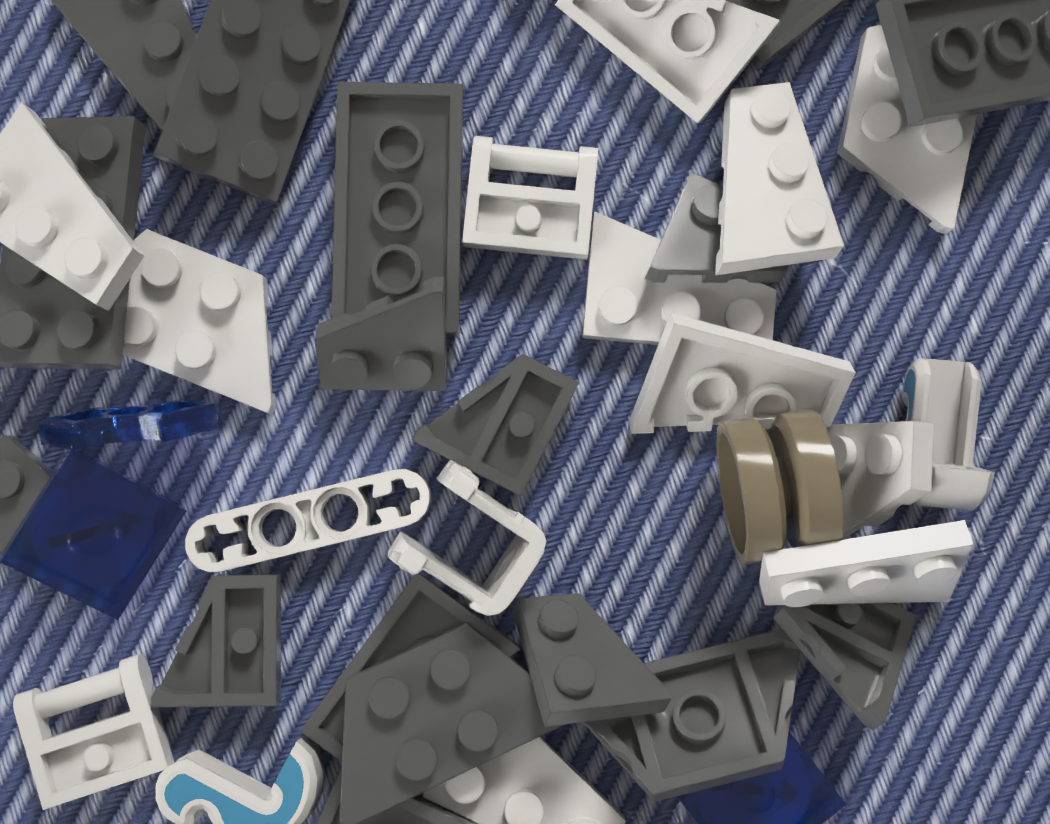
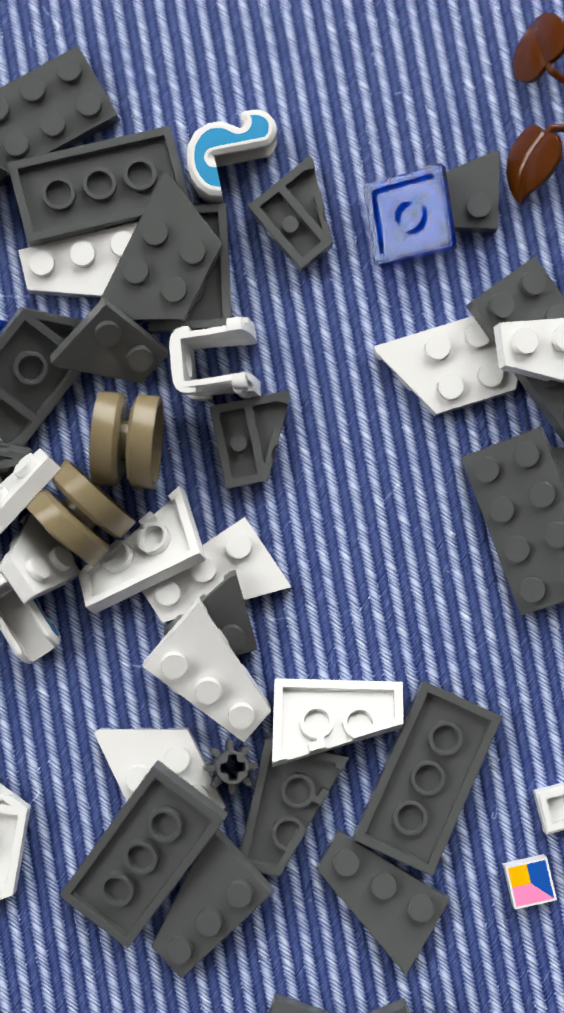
camera: 145 degrees right, 0 degrees up
(99, 752) = (317, 115): white plate -> none
(125, 424) = (425, 293): clear blue tile -> none
(308, 514) = (312, 313): white beam -> none
(387, 344) = (340, 427): dark grey wing -> none
(397, 193) = (395, 505): dark grey plate -> none
(528, 216) = (322, 556): white plate -> none
(662, 537) = (126, 440): none -> dark tan wheel
(821, 50) = (238, 775): none -> dark grey gear

